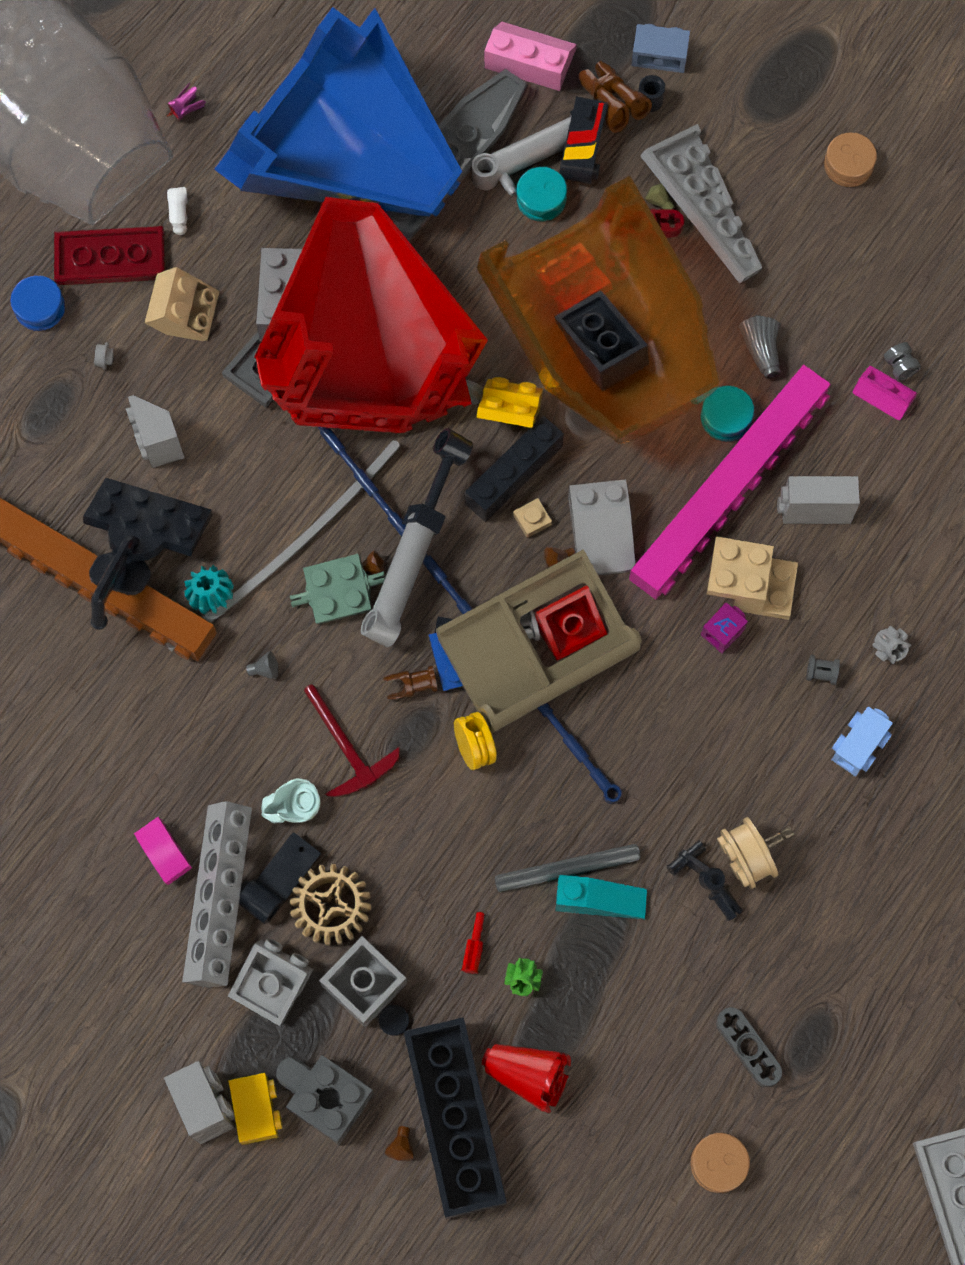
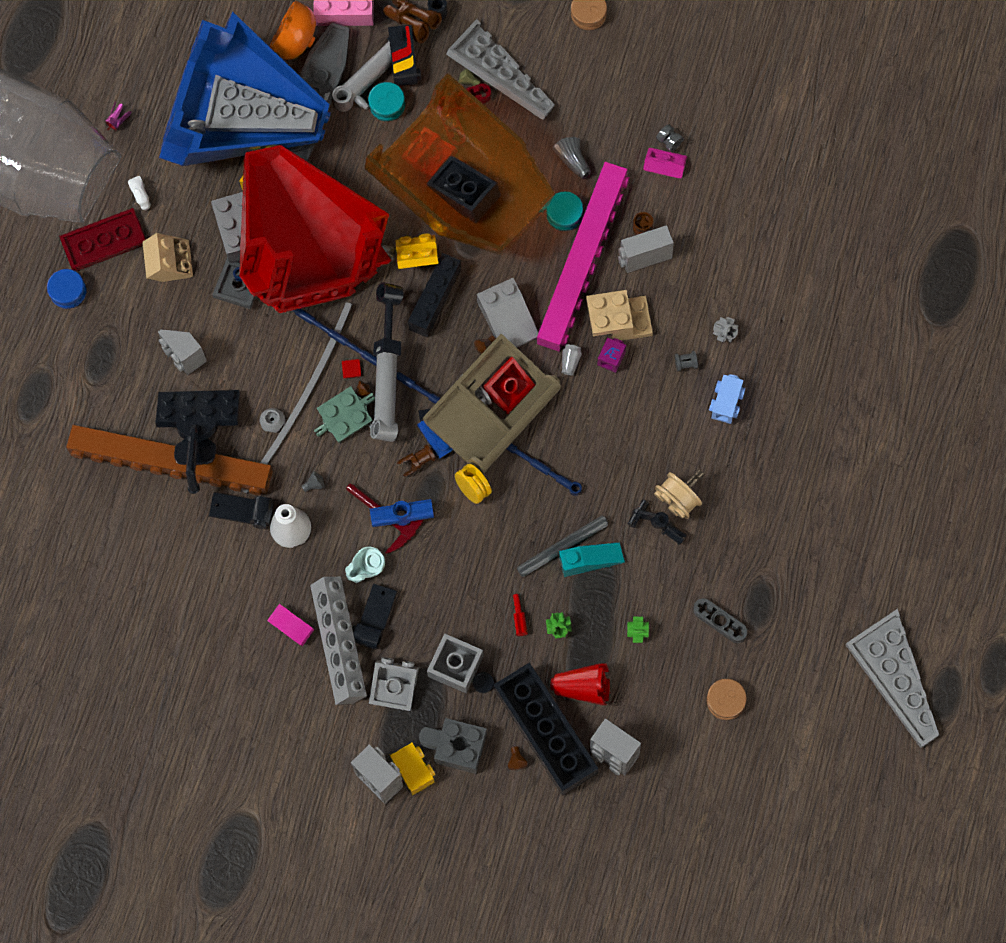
camera: 15 degrees left, 0 degrees up
(103, 356) = (126, 310): light grey plate -> none
(170, 678) = (243, 510): none -> black door
(208, 589) = (258, 443): teal gear -> none
(211, 715) = (290, 526): none -> white cone
(246, 570) = (276, 424): none -> light grey plate
(281, 146) = (197, 126): none -> light grey bush
(339, 880) = (422, 622): tan gear -> none
(358, 147) = (250, 110): none -> light grey wing
(369, 530) = (351, 368): none -> red piece
(383, 752) = (388, 514): none -> blue piece
(452, 66) = (294, 32): none -> orange cylinder
(532, 518) = (458, 324): tan plate -> none
(539, 1181) = (614, 748): none -> light grey brick
(630, 1021) = (638, 629): none -> bright green gear
(666, 615) = (570, 359): none -> light grey cone
(829, 460) = (642, 220): none -> reddish brown wheel

